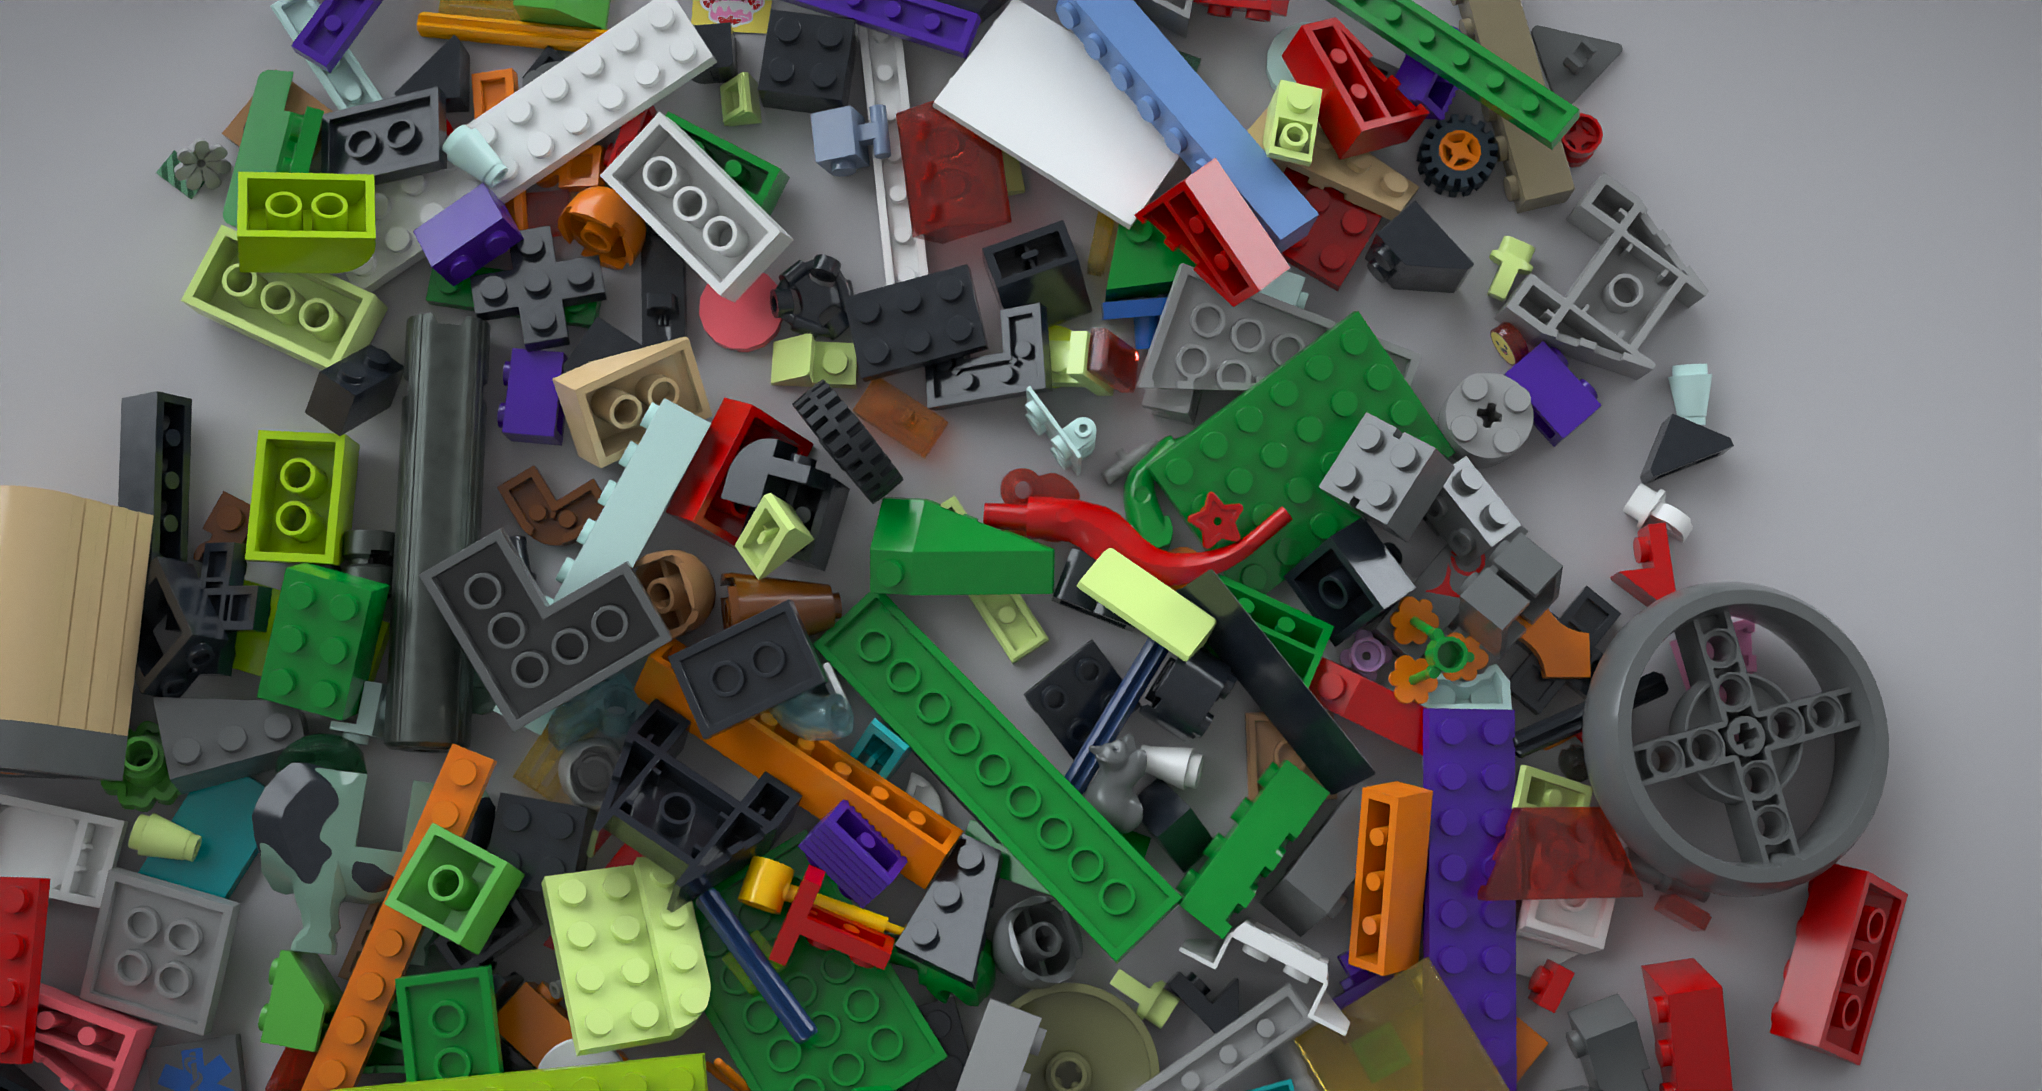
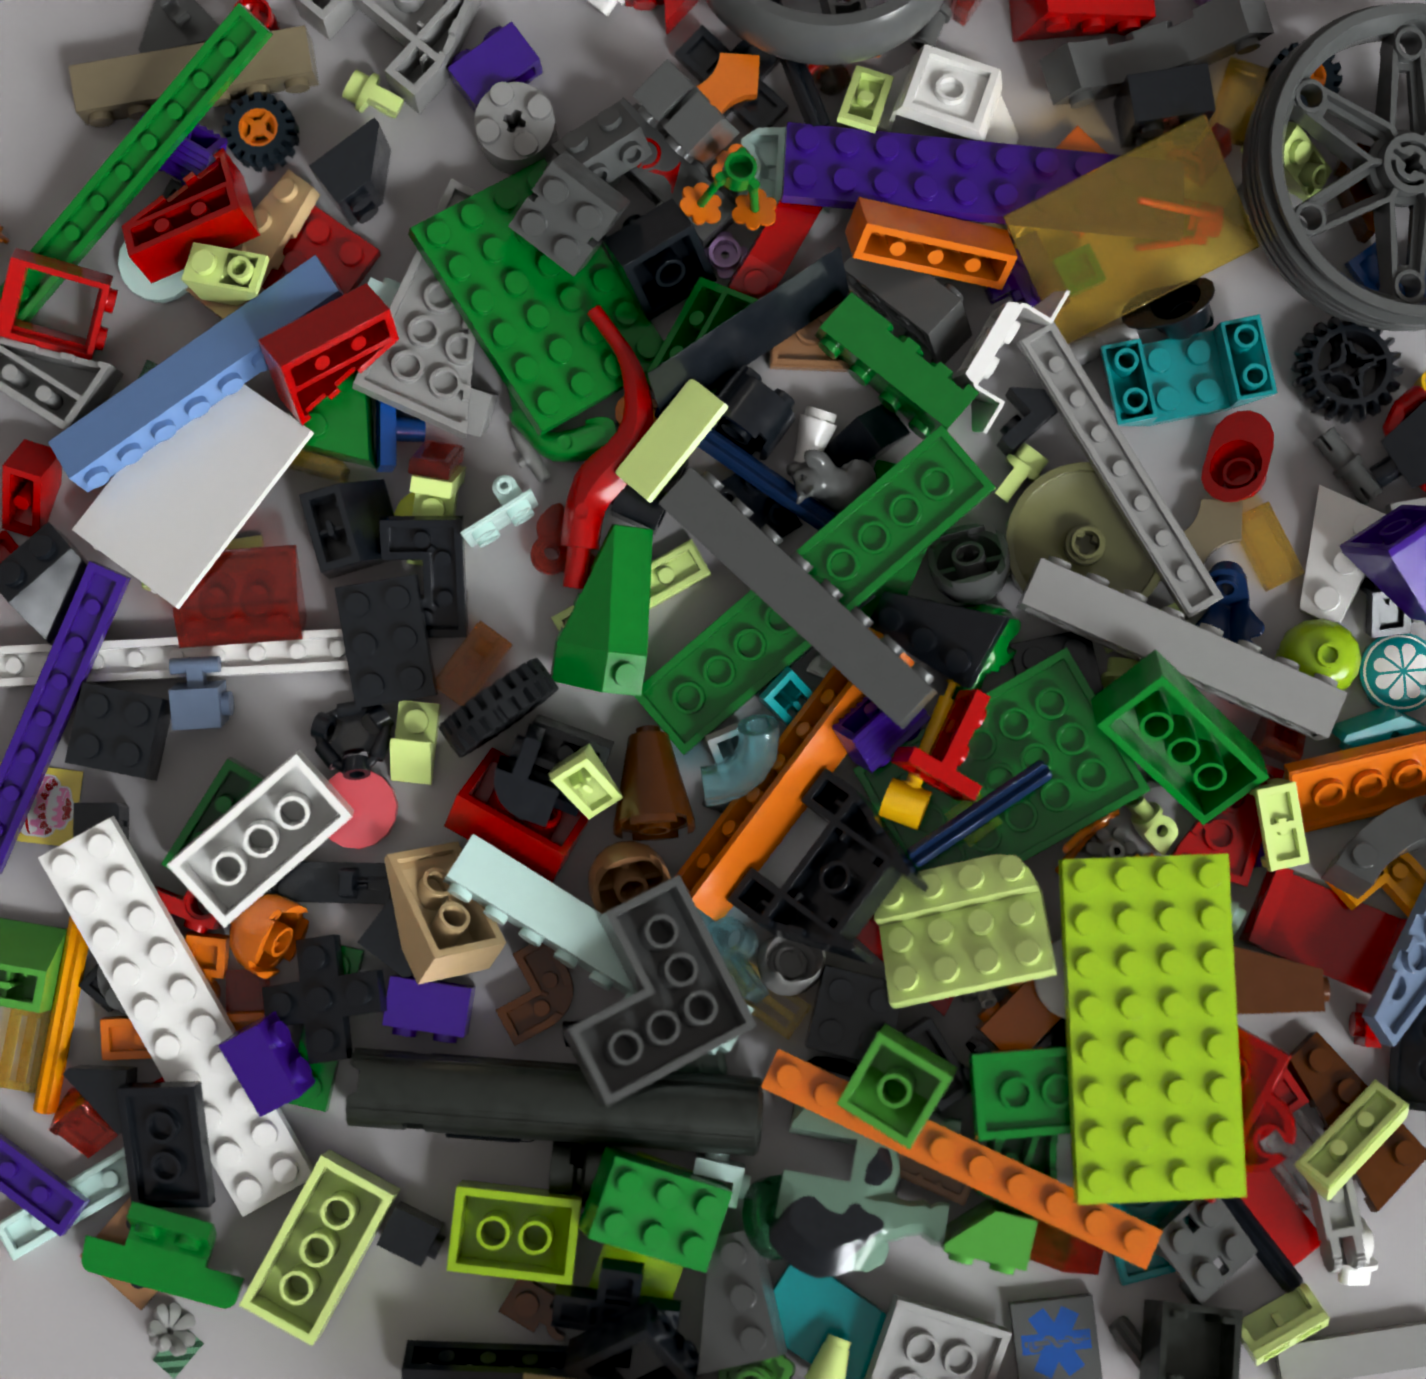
camera: 85 degrees left, 5 degrees up
(292, 396) = (412, 1234): none -> black brick
(305, 222) = (245, 1218): lime brick -> none
(355, 389) = (412, 1177): black brick -> none
(404, 57) = (81, 1124): none -> clear red tile
(474, 155) = (191, 1052): light aqua cone -> none
(740, 101) = (150, 801): yellowish green slope -> none
(748, 669) = (710, 806): black plate -> none
(979, 752) = (798, 598): none -> dark grey brick
(1205, 521) = (594, 382): red plate -> none
(1509, 343) = (445, 100): clear red tile -> none
(1549, 984) = (1028, 118): red plate -> none
(1560, 857) = (920, 95): clear red wing -> none

